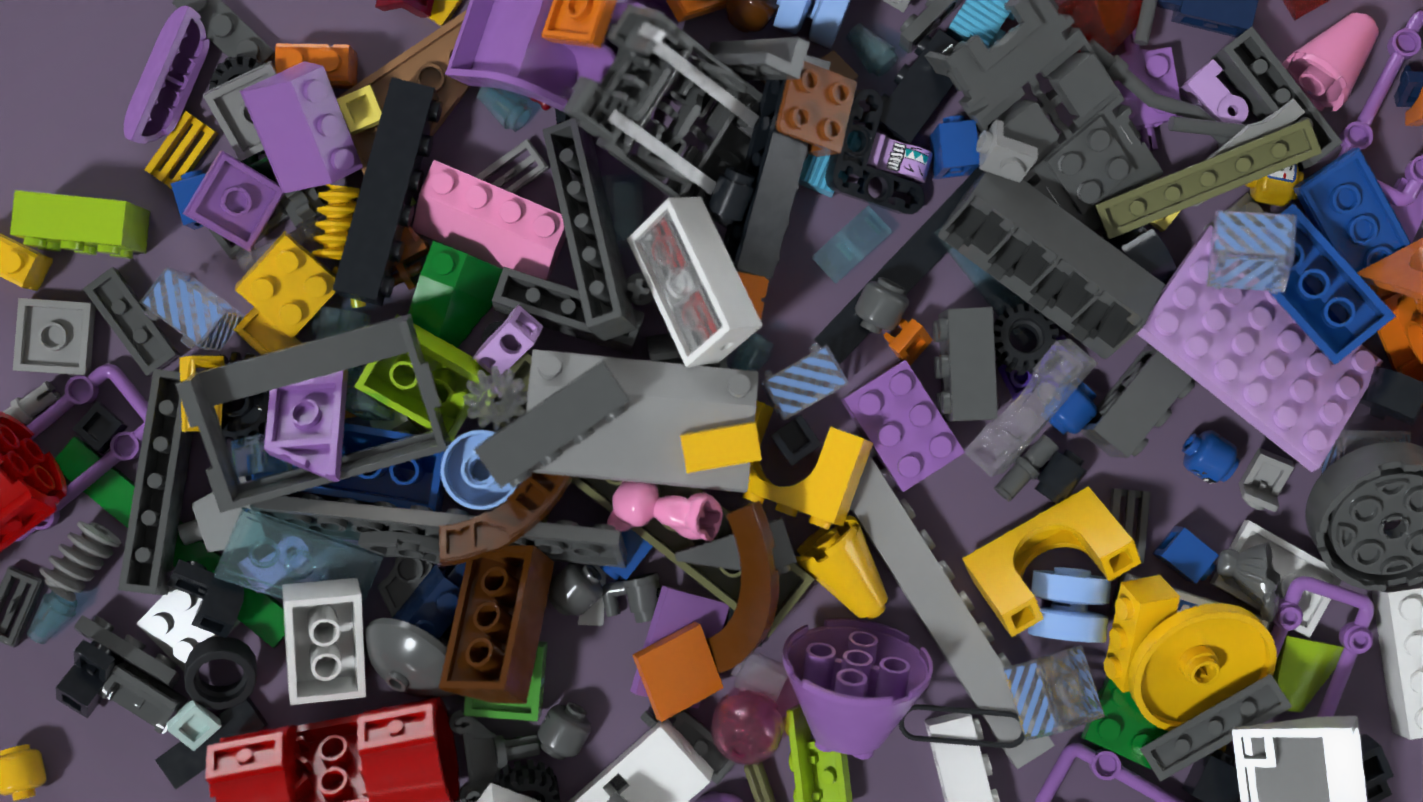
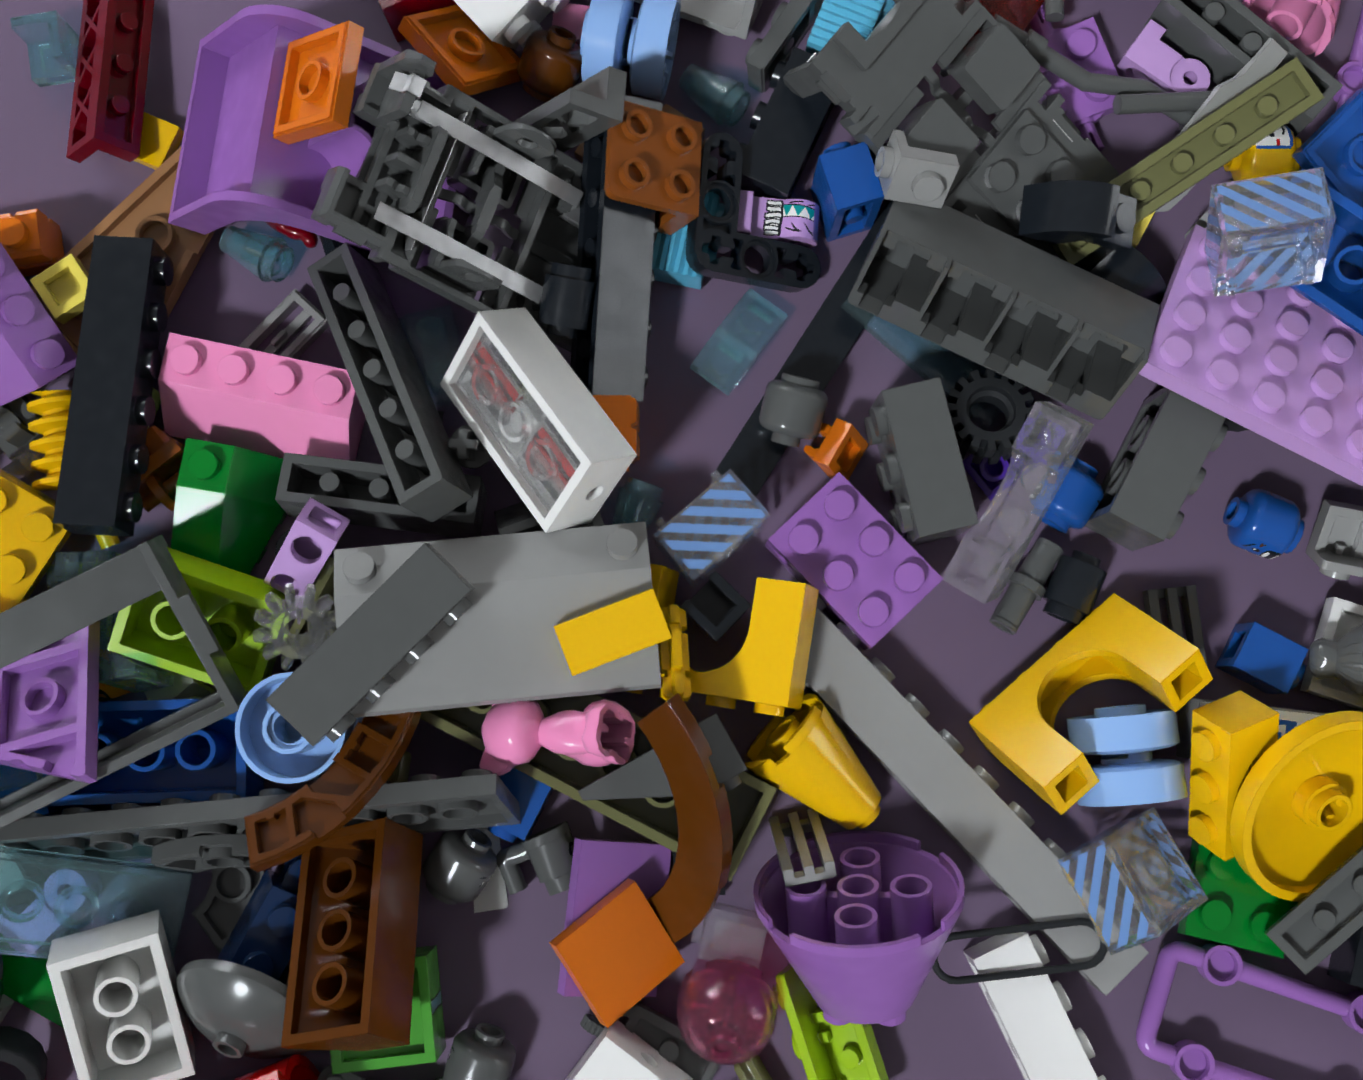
camera: 10 degrees left, 5 degrees down
(760, 472) = (675, 655): none -> yellow axle
(823, 610) = (797, 829): none -> light grey tile
(1120, 205) = (1078, 212): none -> black brick

